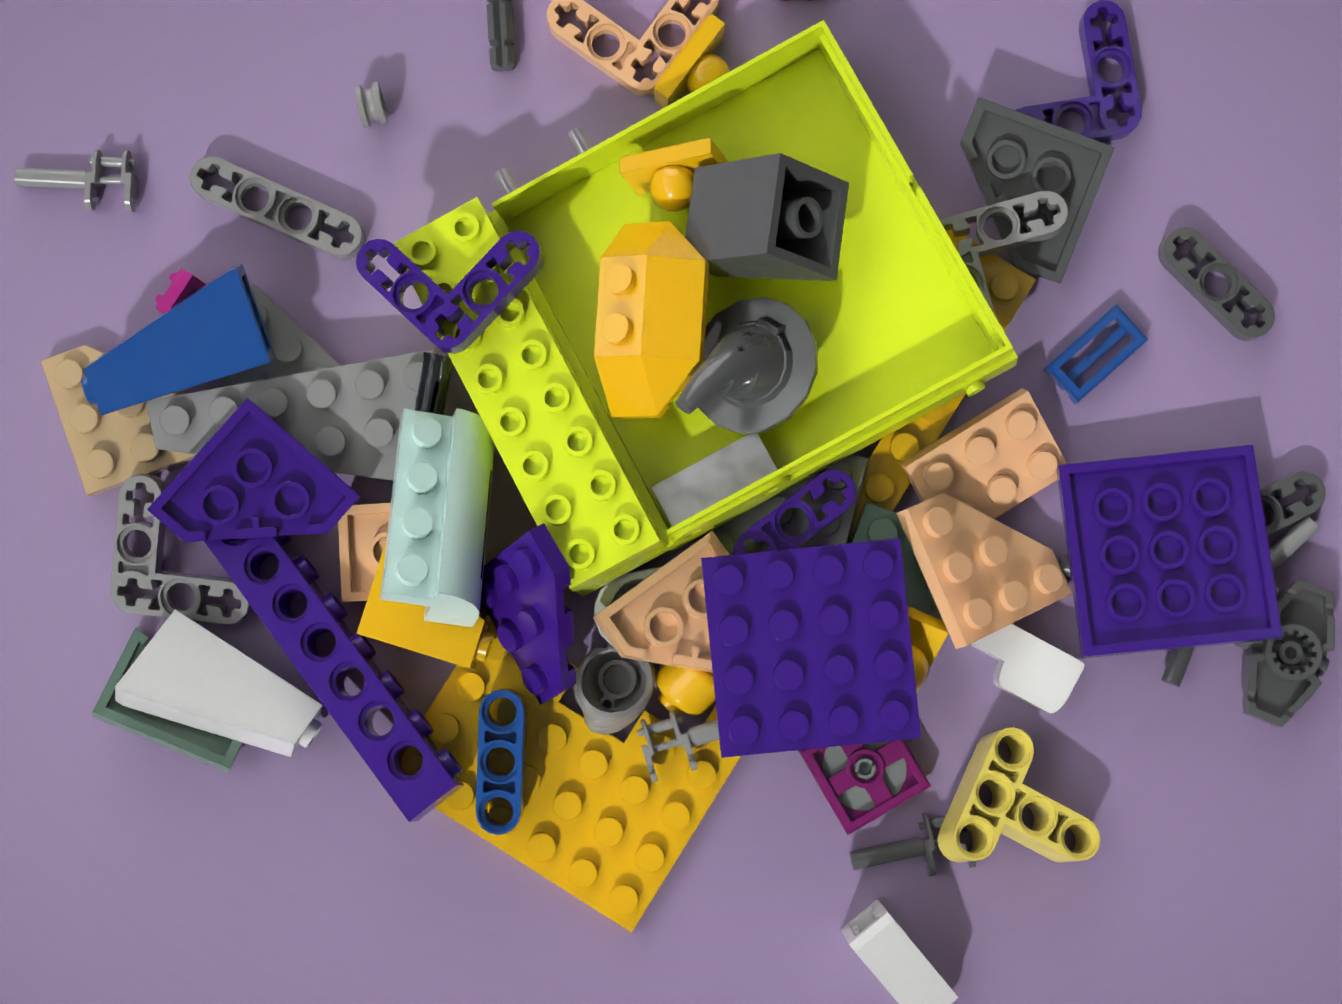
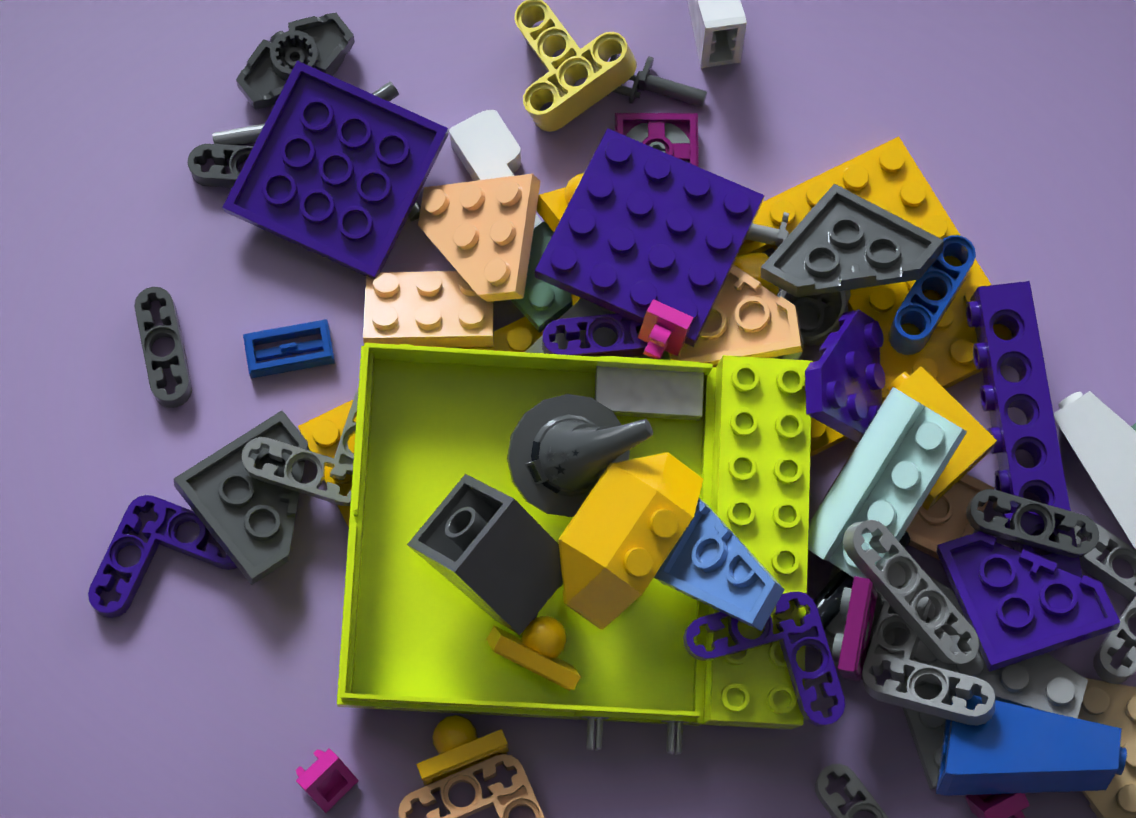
camera: 150 degrees left, 15 degrees down
(242, 566) = (1062, 543): none -> dark grey beam
(336, 364) = (900, 662): none -> light grey beam
(355, 419) = (915, 587): none -> light grey beam
(394, 370) = (858, 611): none -> magenta piece
(538, 318) = (720, 571): none -> medium blue wing
(607, 753) = (849, 247): none -> dark grey plate
(736, 548) = (664, 330): none -> dark pink tile

